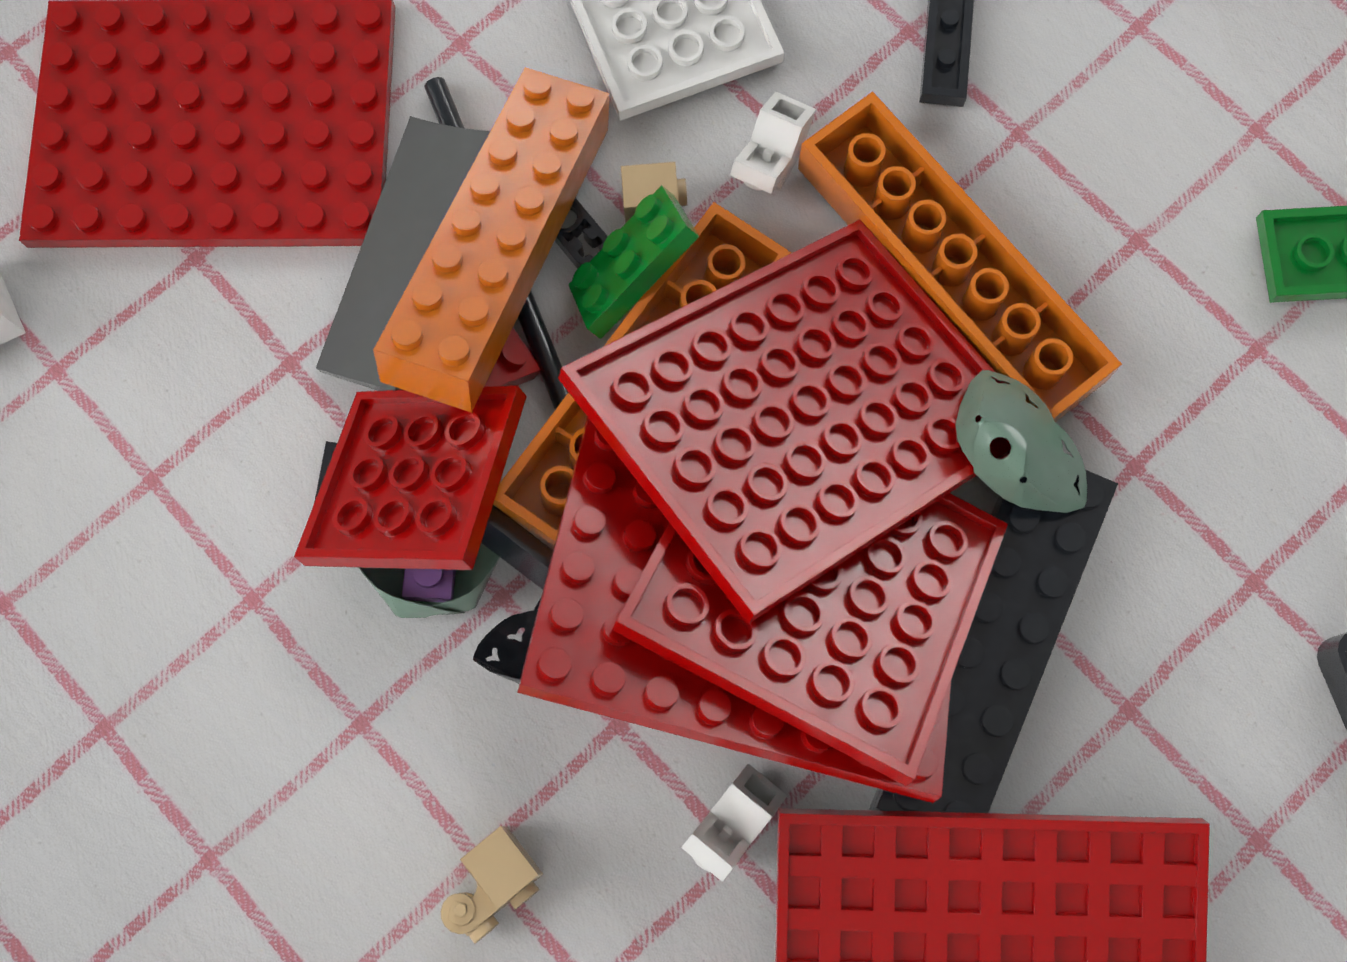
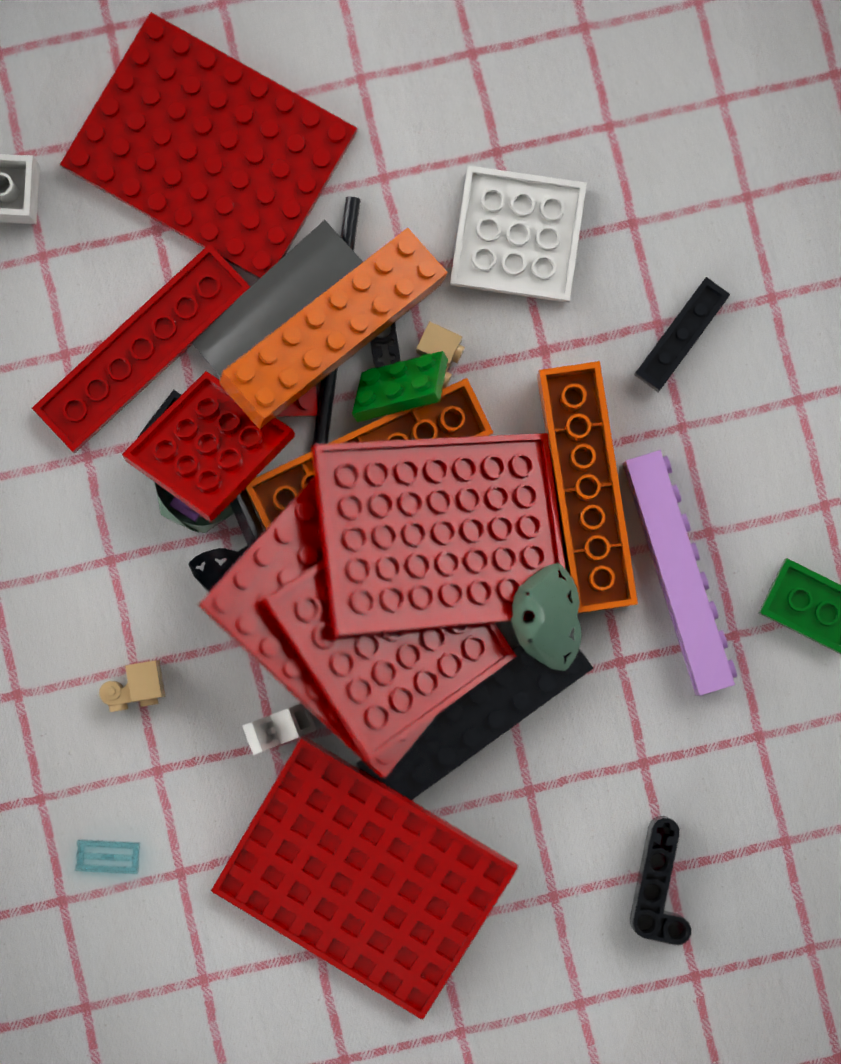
camera: 25 degrees right, 10 degrees up
(249, 419) = (140, 349): none -> red plate
(774, 143) = (526, 357): white brick -> none
(1145, 310) = (678, 573): none -> lavender brick

